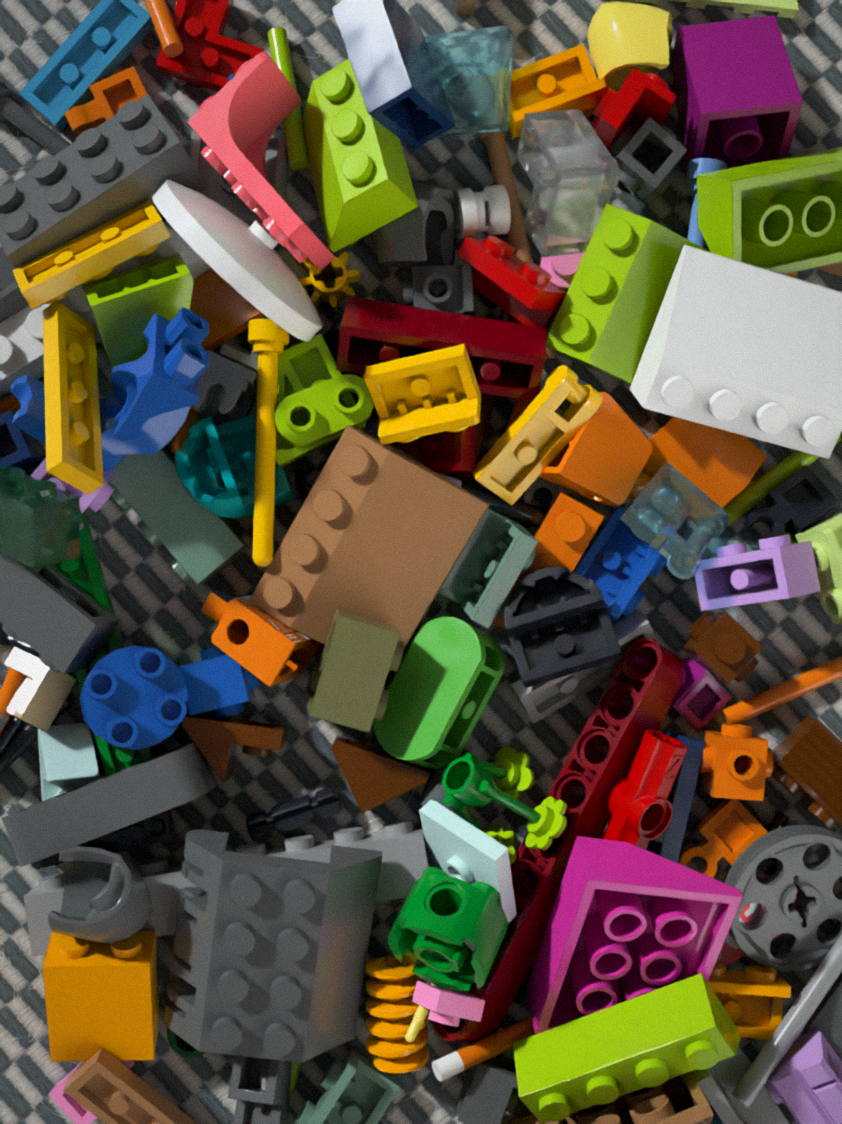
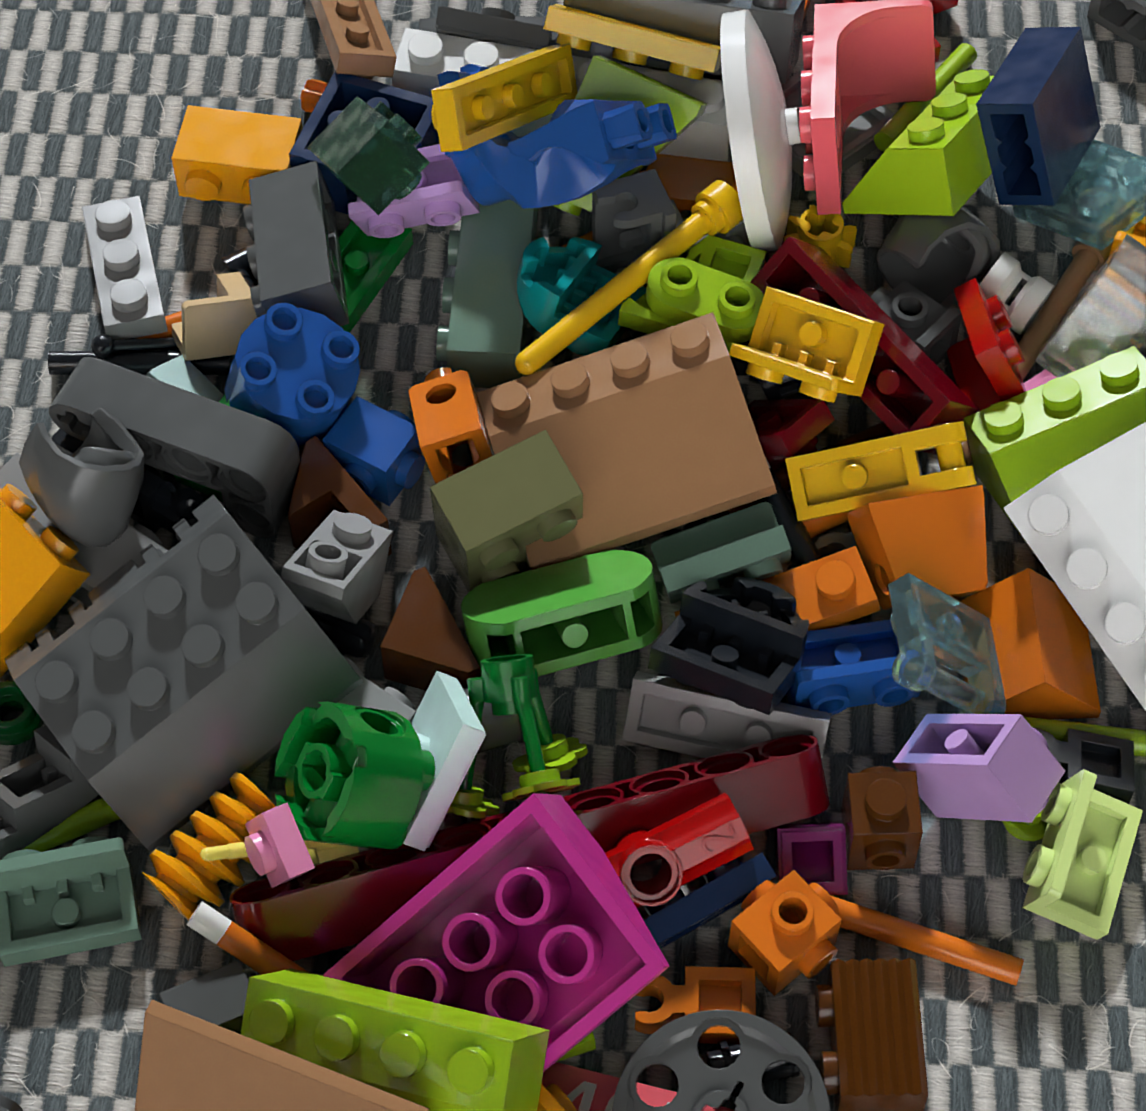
camera: 45 degrees right, 30 degrees down
(291, 795) = (340, 566): none -> light grey slope

